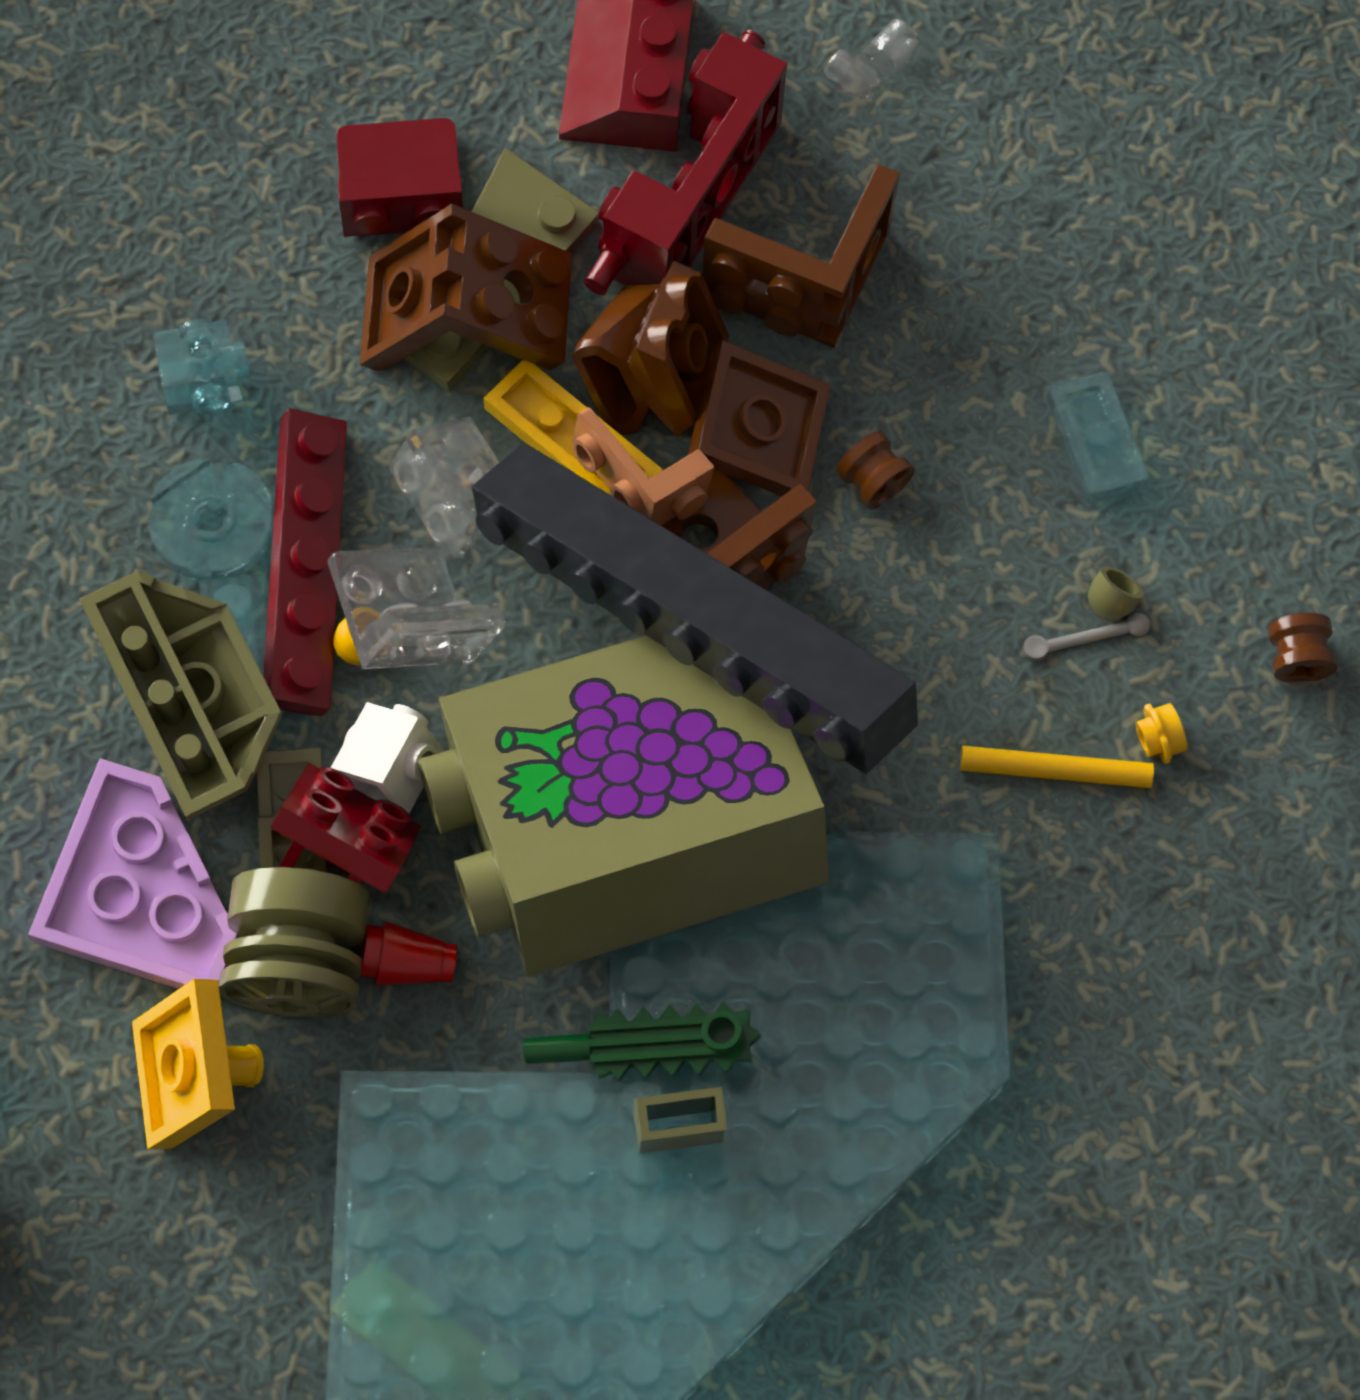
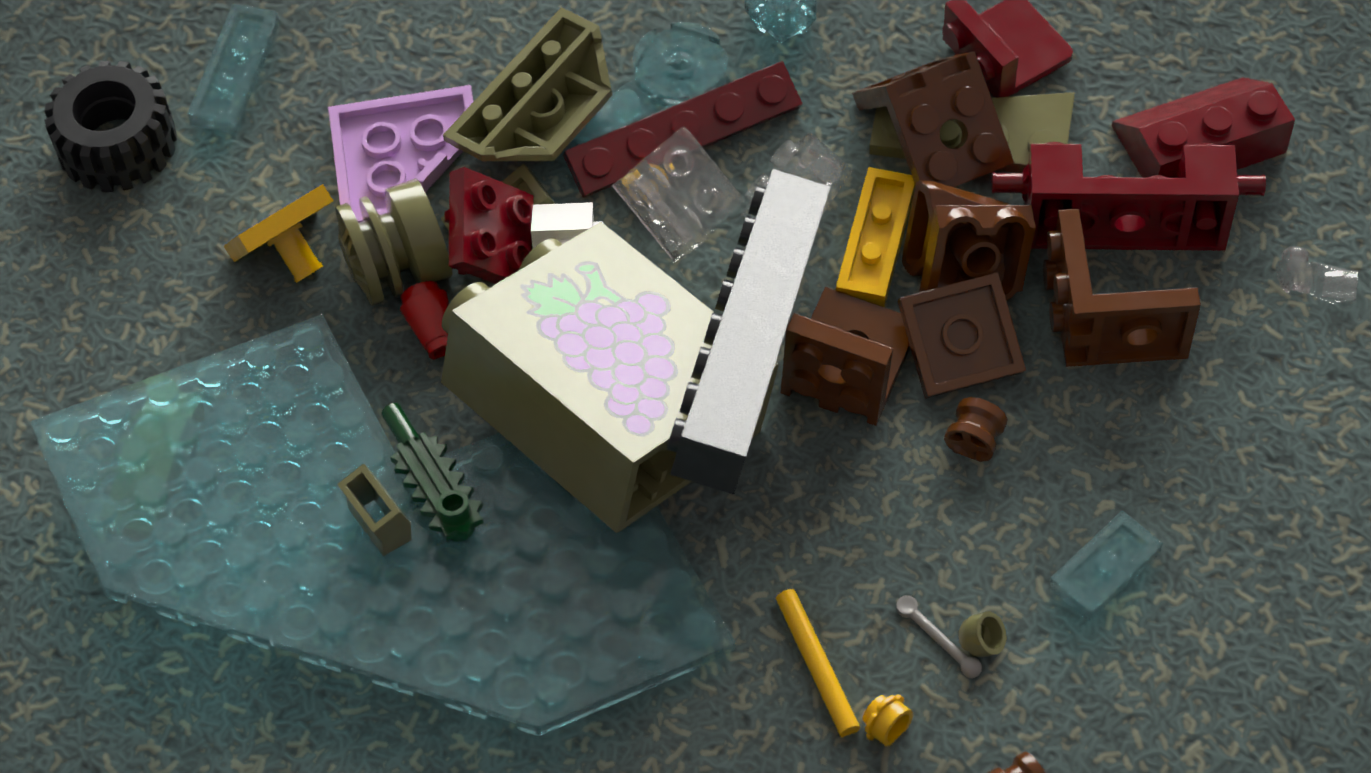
camera: 70 degrees right, 10 degrees down
(669, 494) = (855, 297): nougat bracket -> none

